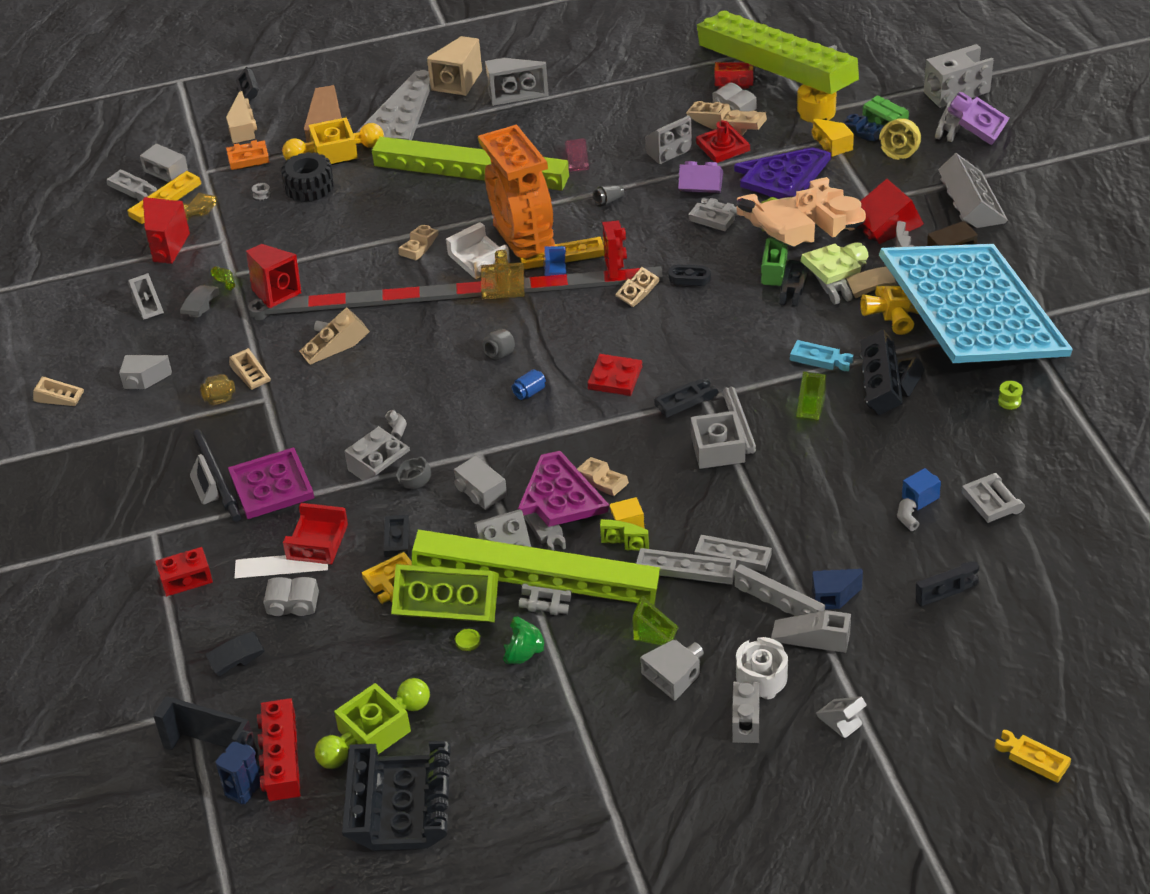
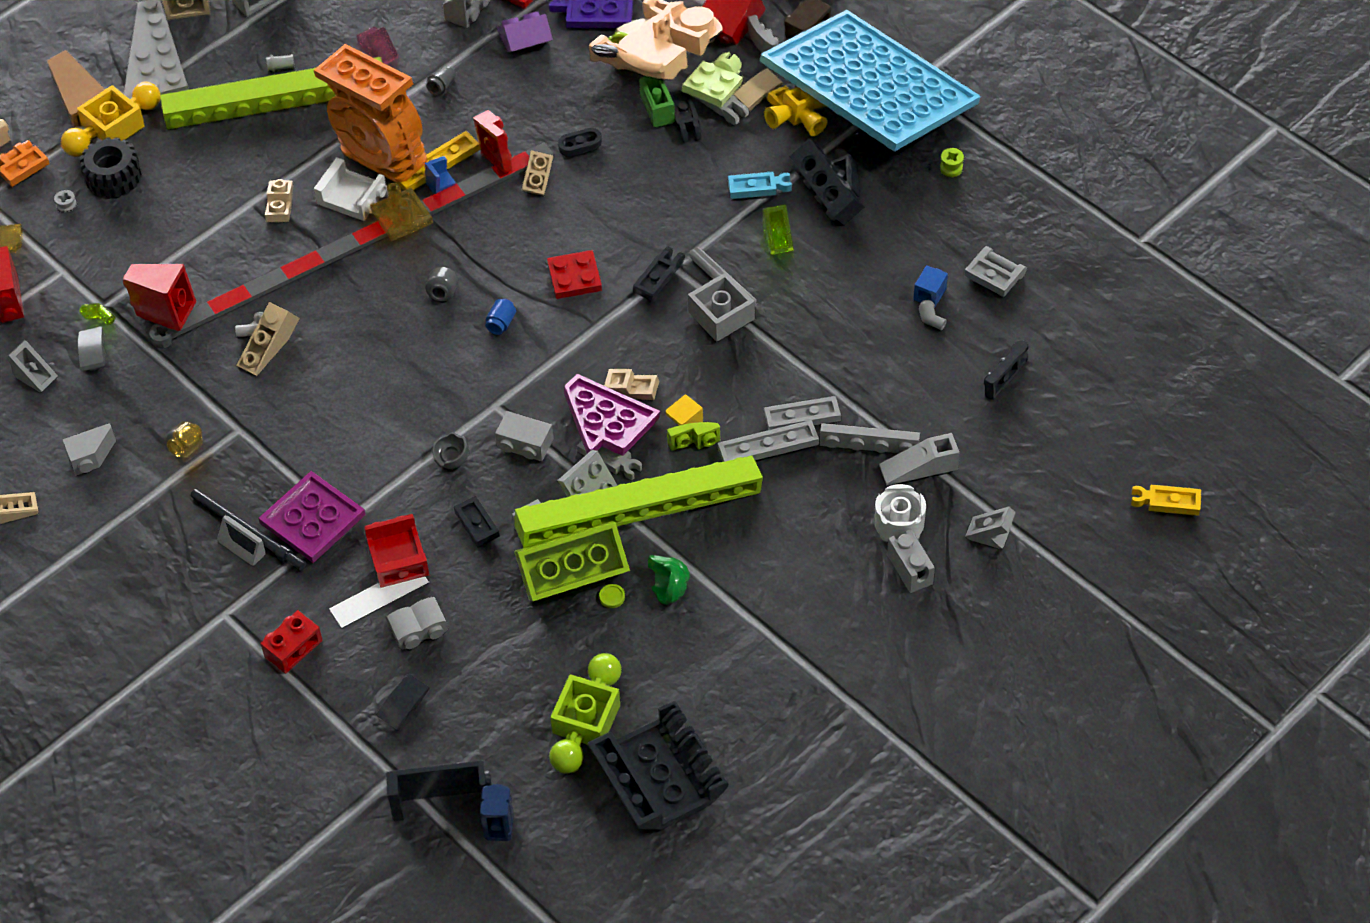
camera: 30 degrees left, 10 degrees up
(247, 356) = (190, 392): tan slope -> none
(279, 750) = (510, 768): red brick -> none
(374, 453) = (402, 447): light grey slope -> none
(383, 575) = (494, 563): yellow plate -> none
(397, 422) = (395, 405): light grey arm -> none
(553, 607) = (652, 536): light grey plate -> none
(651, 624) = (776, 513): clear neon green slope -> none
(672, 667) = (818, 545): light grey torso -> none
(713, 214) = (561, 66): light grey plate -> none
(836, 586) = (912, 411): dark blue slope -> none

